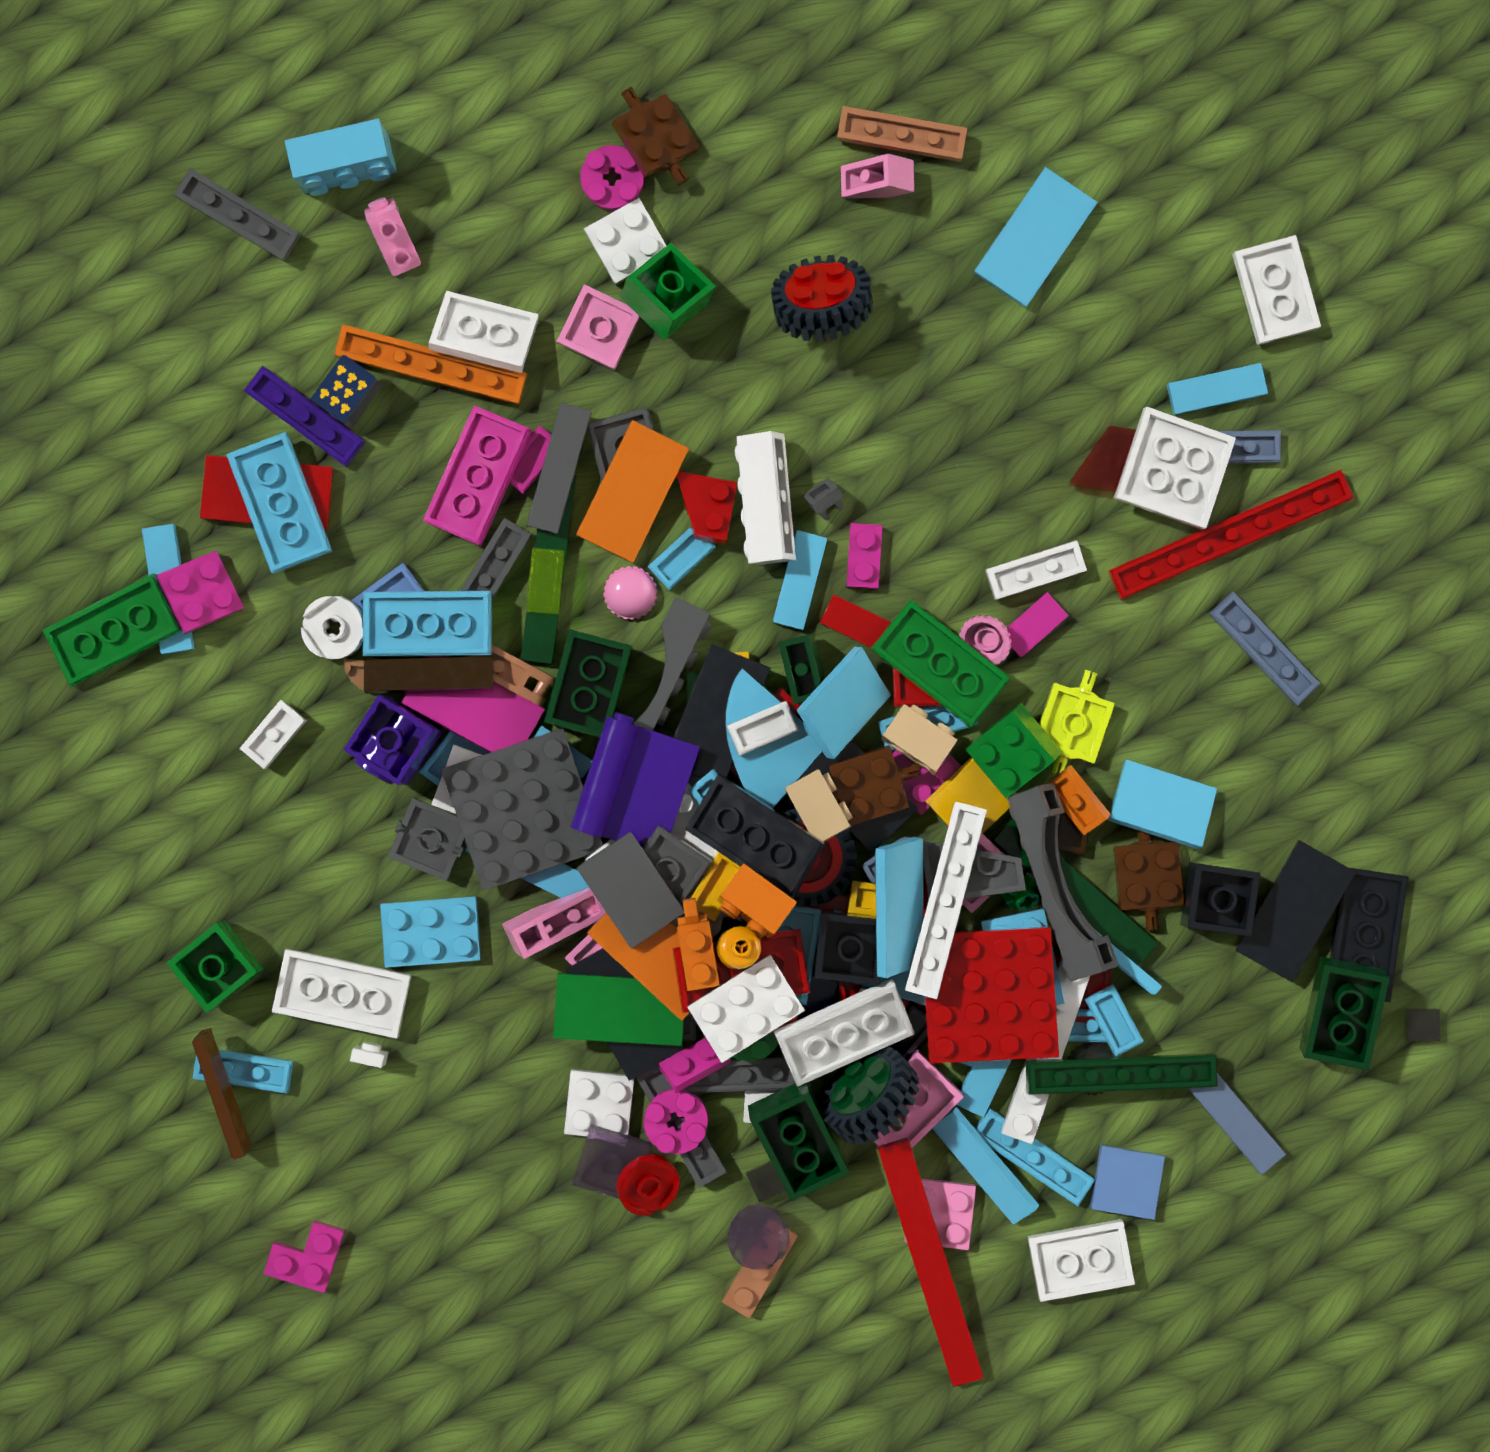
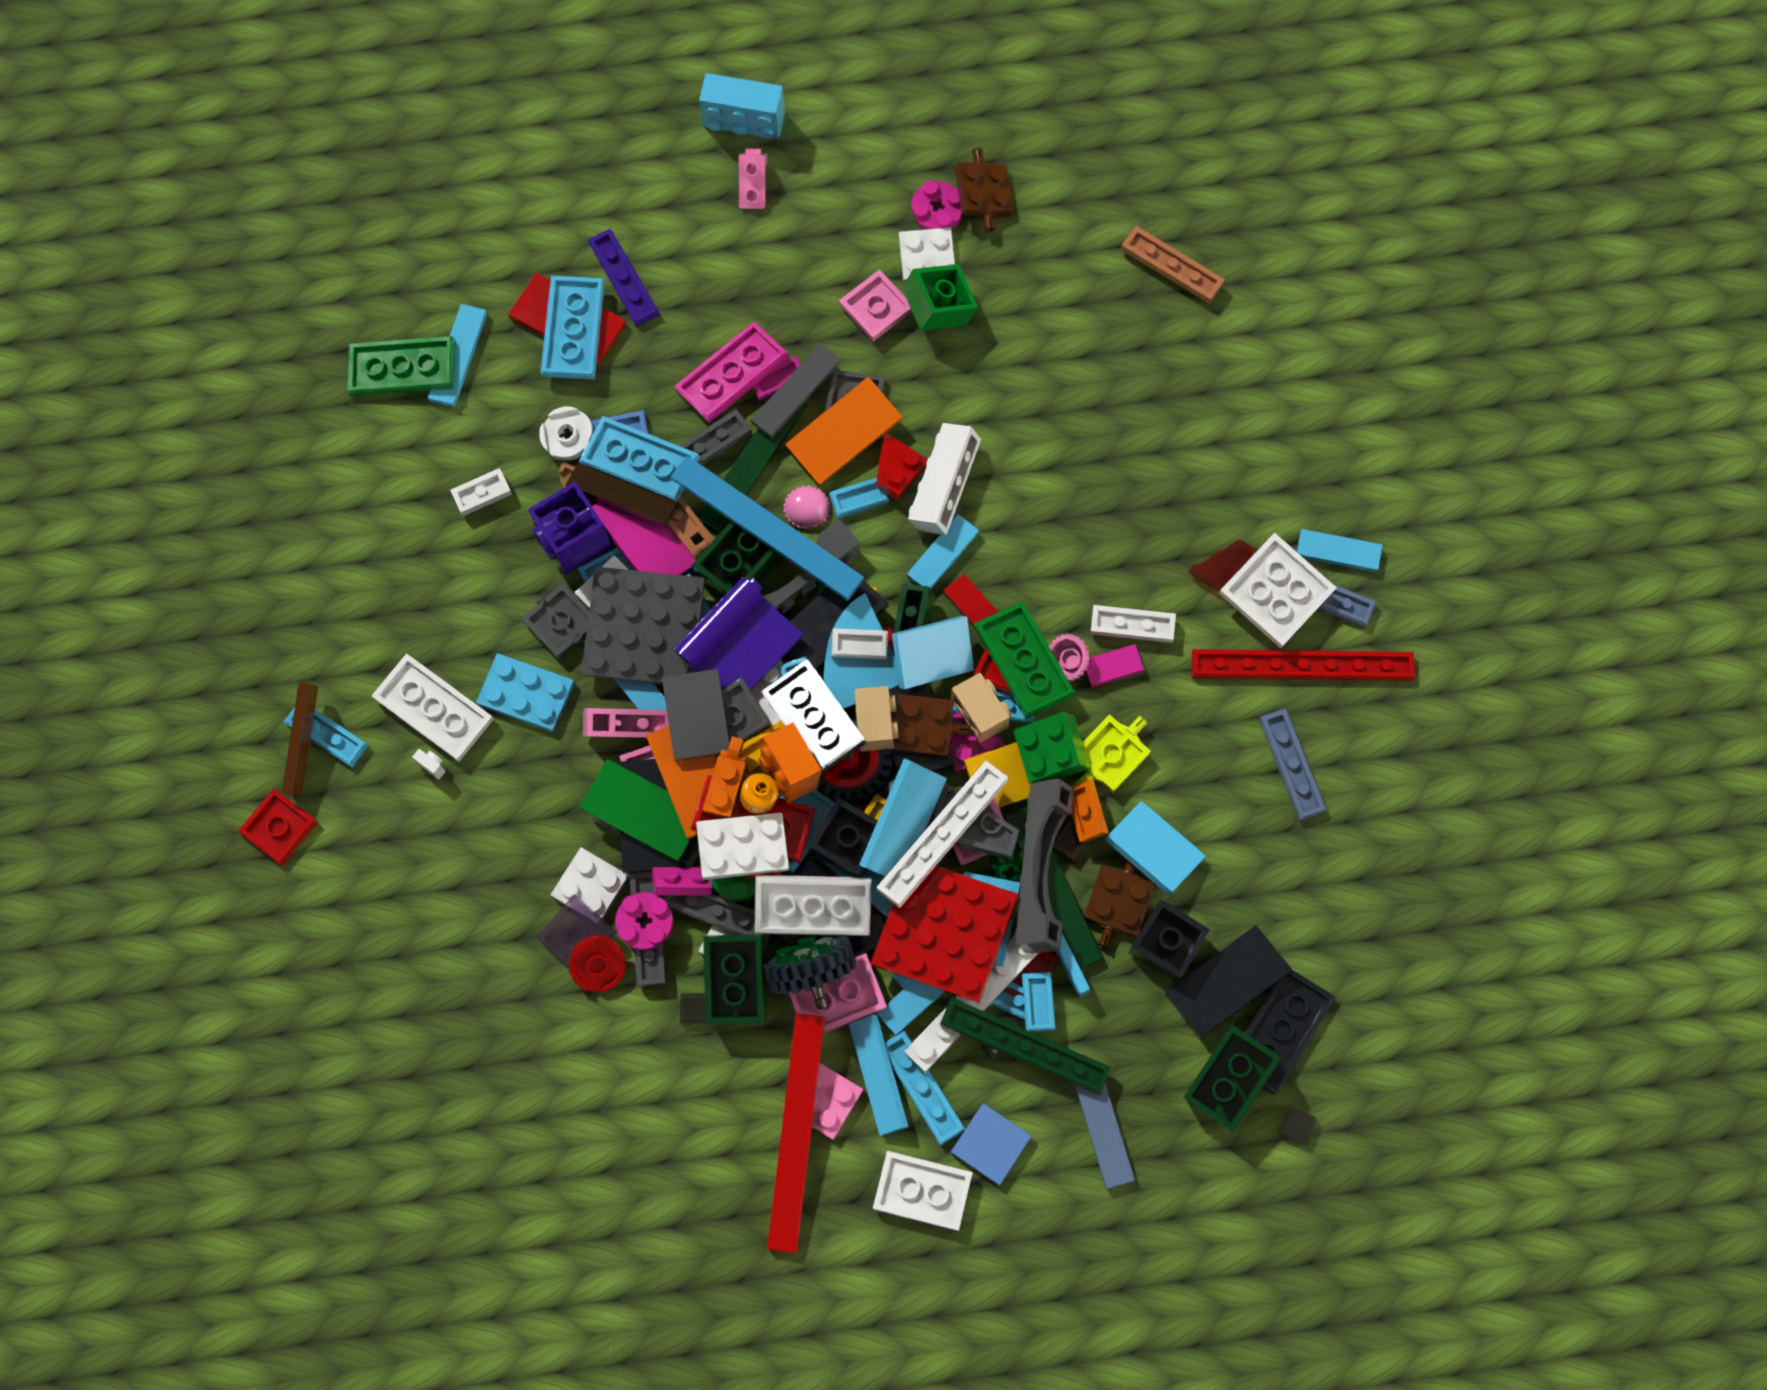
camera: 30 degrees right, 15 degrees down
(200, 592) = (480, 365): dark pink plate -> none
(215, 966) = (346, 641): green brick -> none
(237, 214) = (646, 118): dark grey plate -> none
(244, 1190) = (278, 827): none -> red tile
(308, 1266) = (299, 910): dark pink plate -> none
(347, 391) = (663, 270): dark blue piece -> none
(429, 365) = (736, 279): orange plate -> none
(483, 331) = (787, 271): white plate -> none
(545, 581) = (746, 465): clear neon green tile -> none
(605, 646) = (767, 528): none -> dark azure tile
(751, 1284) = (654, 1076): nougat plate -> none
(758, 1237) = (665, 1046): tile -> none
(822, 298) = (1055, 349): black wheel -> none
(823, 496) = (988, 498): dark grey tile -> none
(864, 556) = (1001, 557): dark pink plate -> none
(878, 177) = (1140, 286): bright pink slope -> none
(1035, 237) = (1243, 380): medium azure tile -> none
(1276, 290) = (1417, 496): white plate -> none

